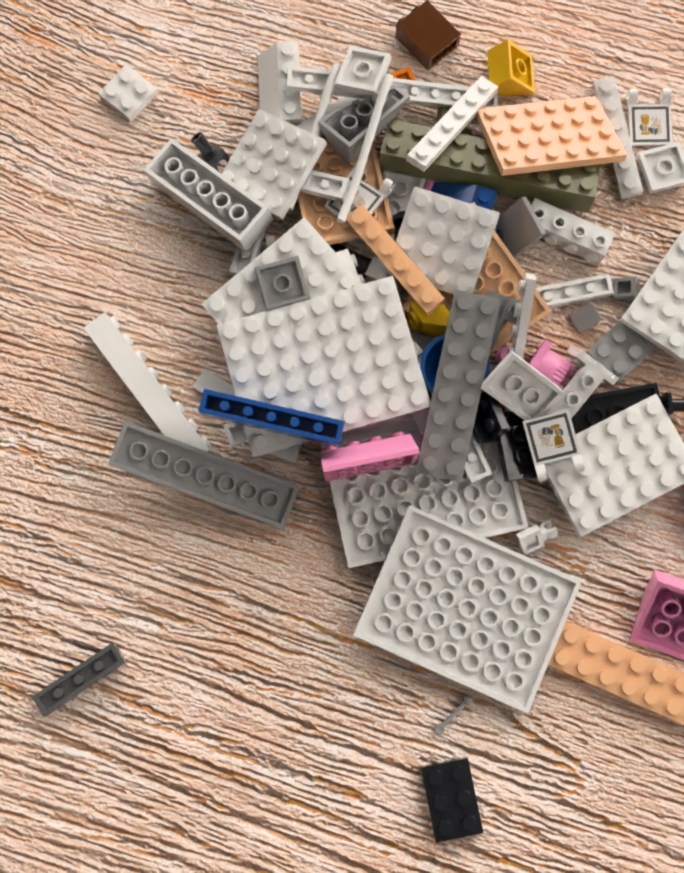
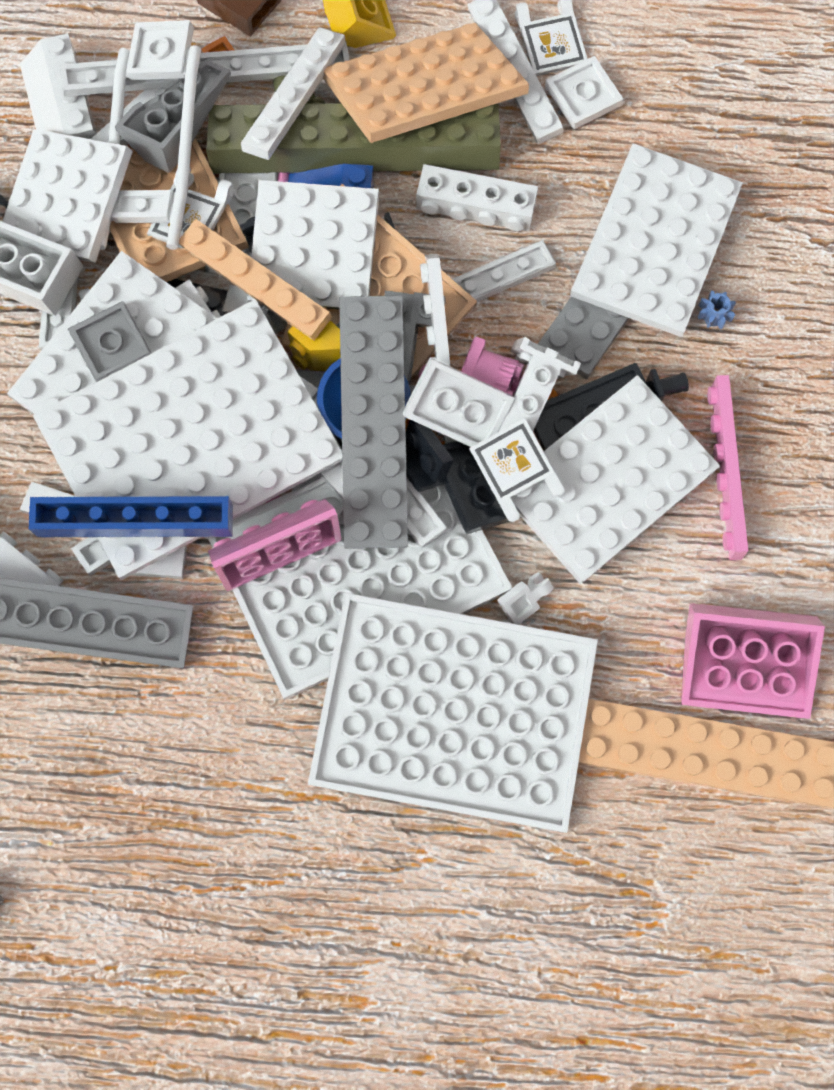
camera: 15 degrees left, 5 degrees down
(439, 728) = (455, 883): light grey hinge -> none
(451, 799) = (492, 975): black plate -> none
(520, 227) = (412, 205): light grey tile -> none
(584, 317) = (525, 302): light grey slope -> none
(626, 288) = (570, 254): light grey slope -> none

